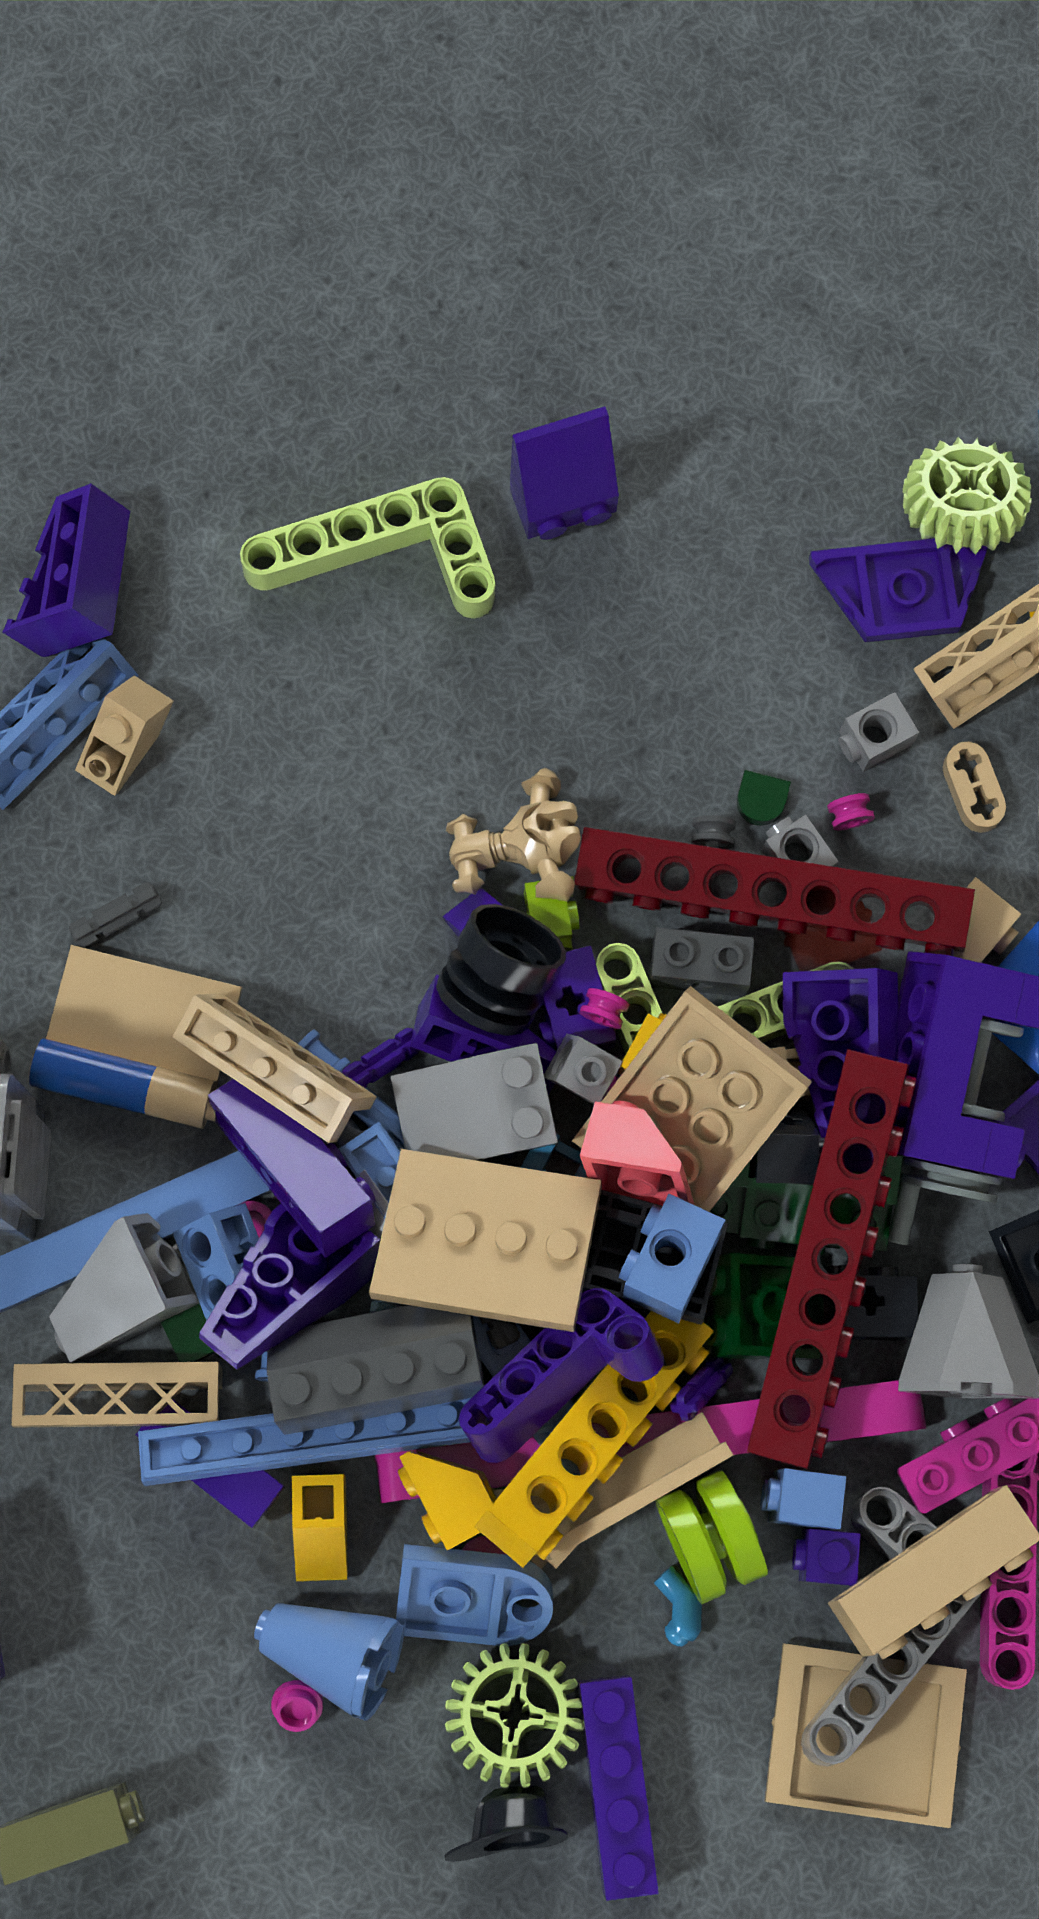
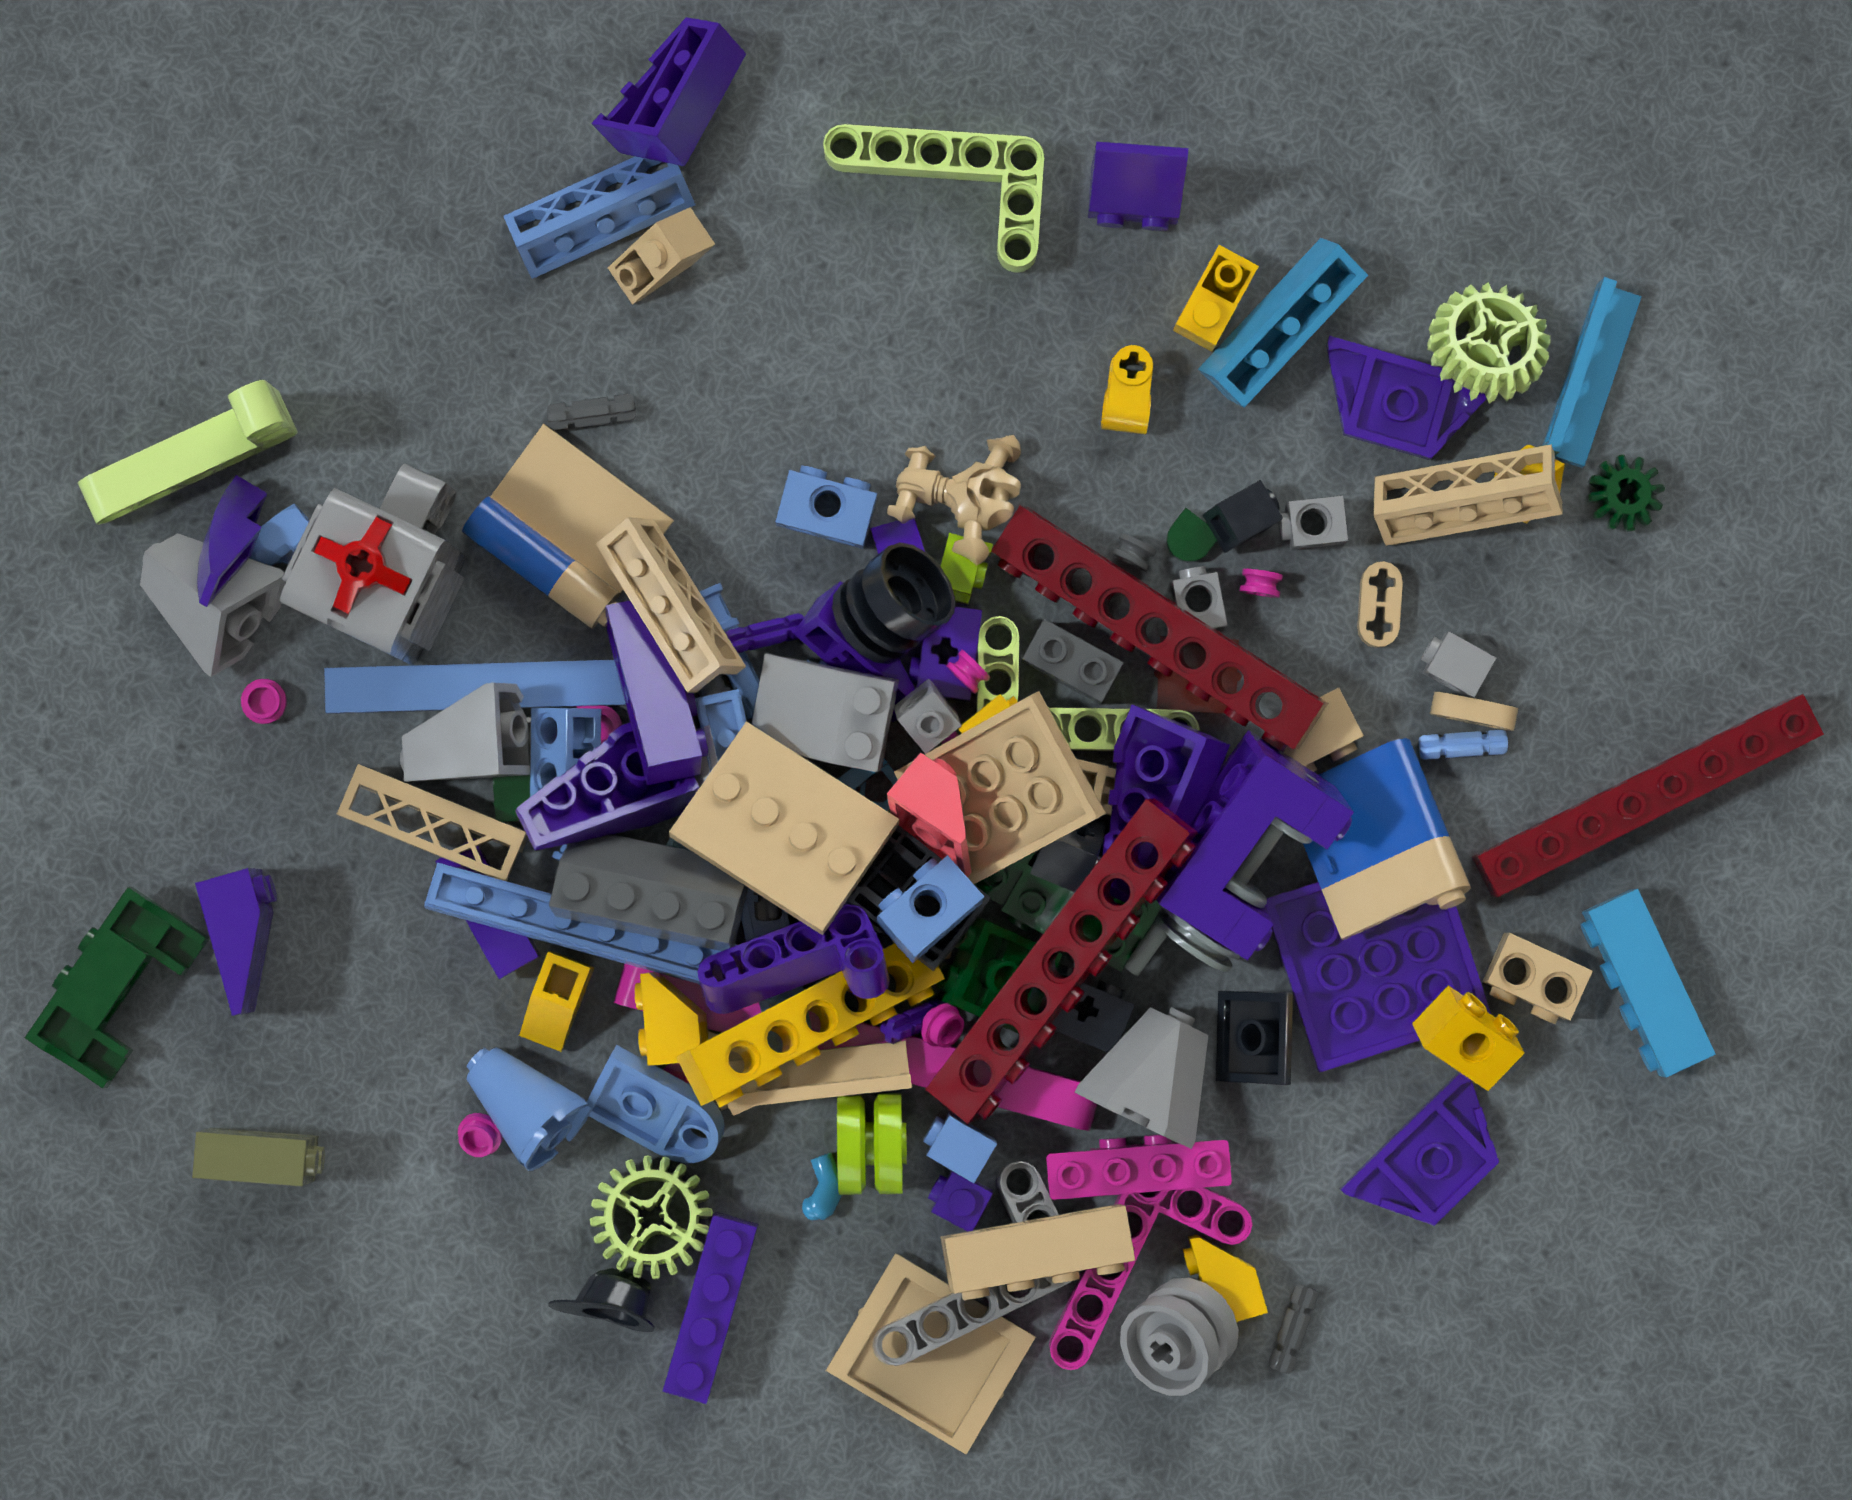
camera: 30 degrees right, 10 degrees up
(416, 925) = (847, 527): none -> medium blue brick
(641, 687) = (1127, 399): none -> yellow piece
(686, 559) = (1215, 298): none -> yellow slope
(732, 1380) = (942, 1026): none -> dark pink plate
(761, 554) = (1283, 322): none -> dark azure brick
(805, 753) = (1243, 516): none -> black brick

